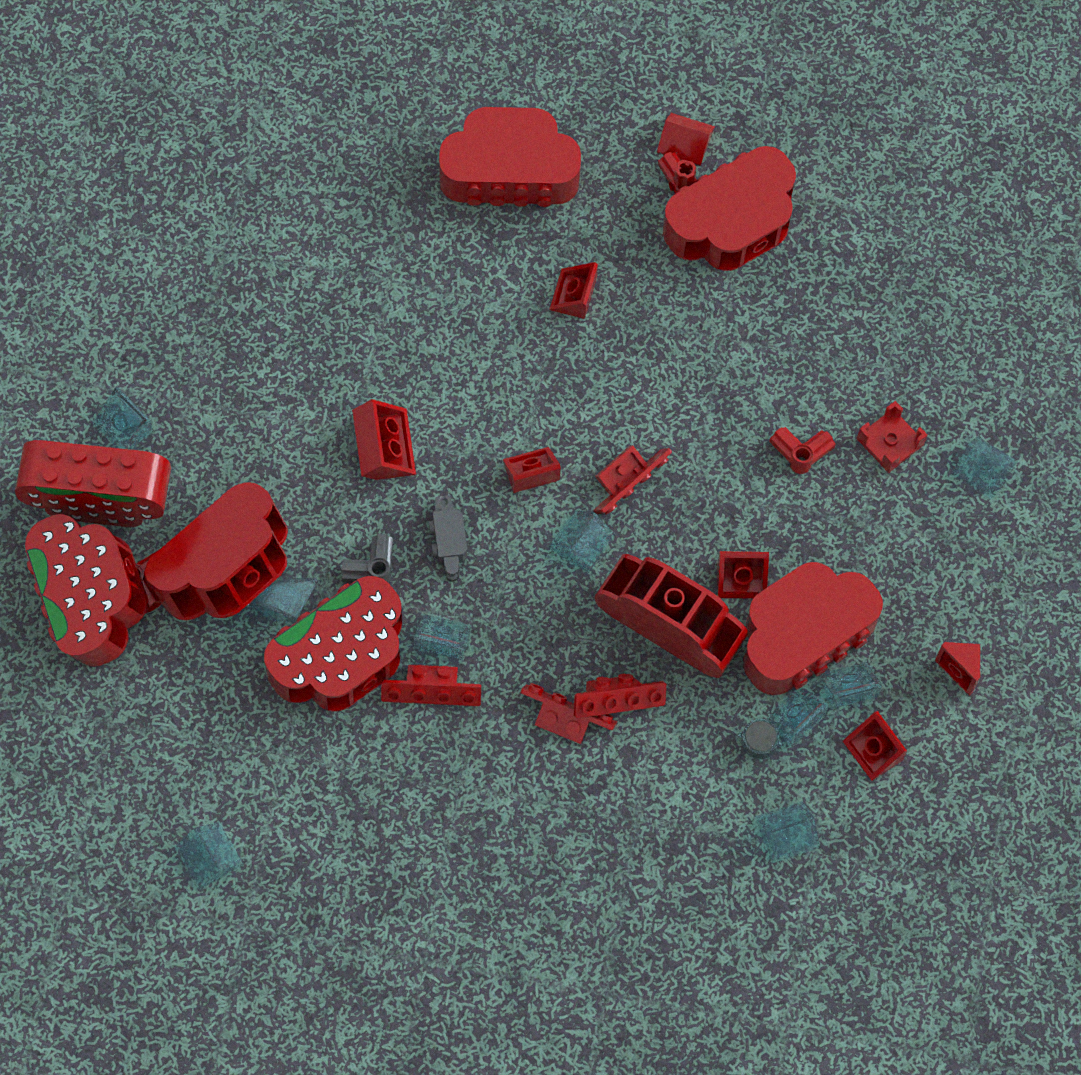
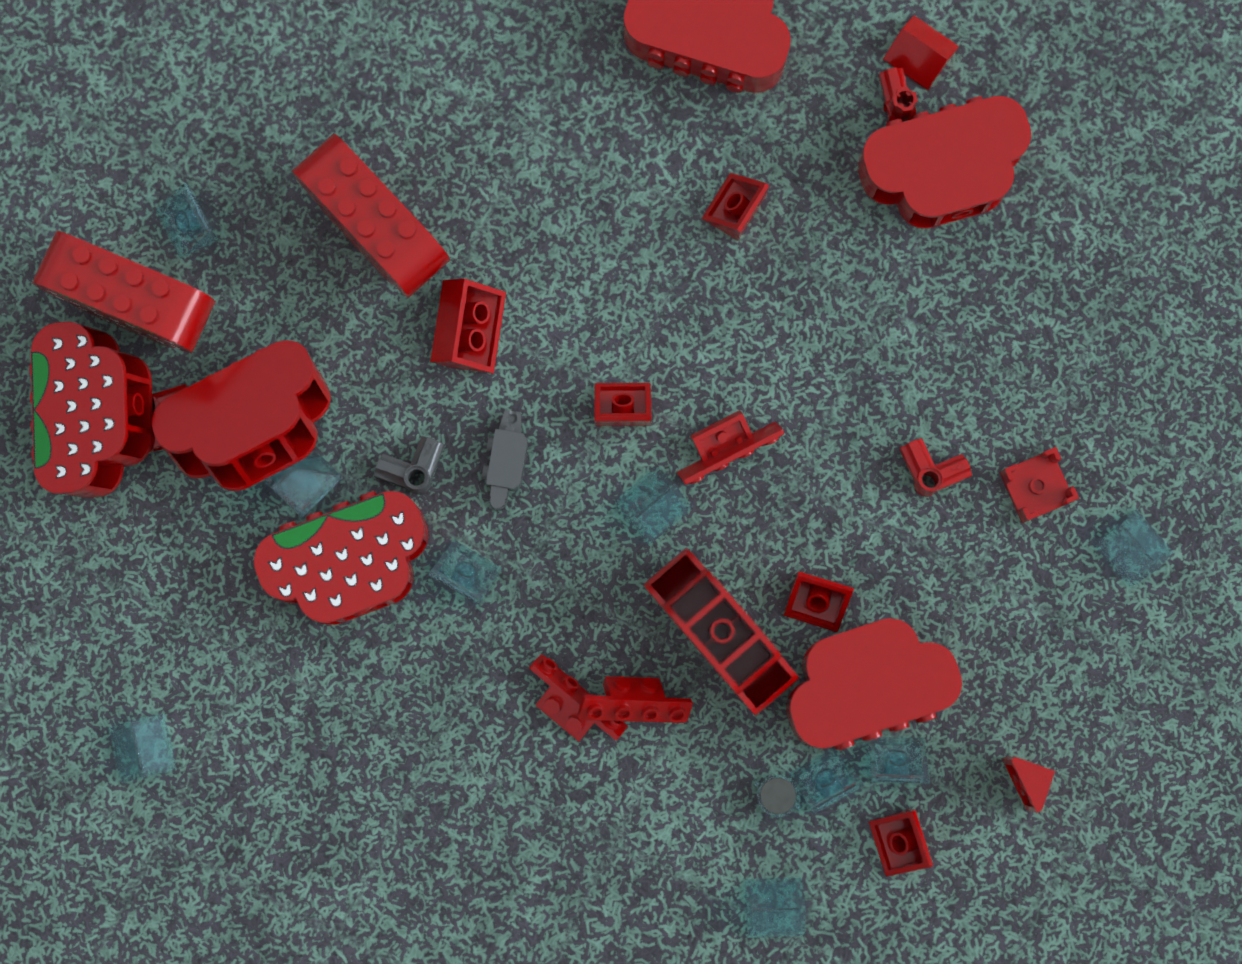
camera: 20 degrees right, 15 degrees up
(280, 369) = (370, 216): none -> red brick
(431, 686) = (436, 626): red bracket -> none

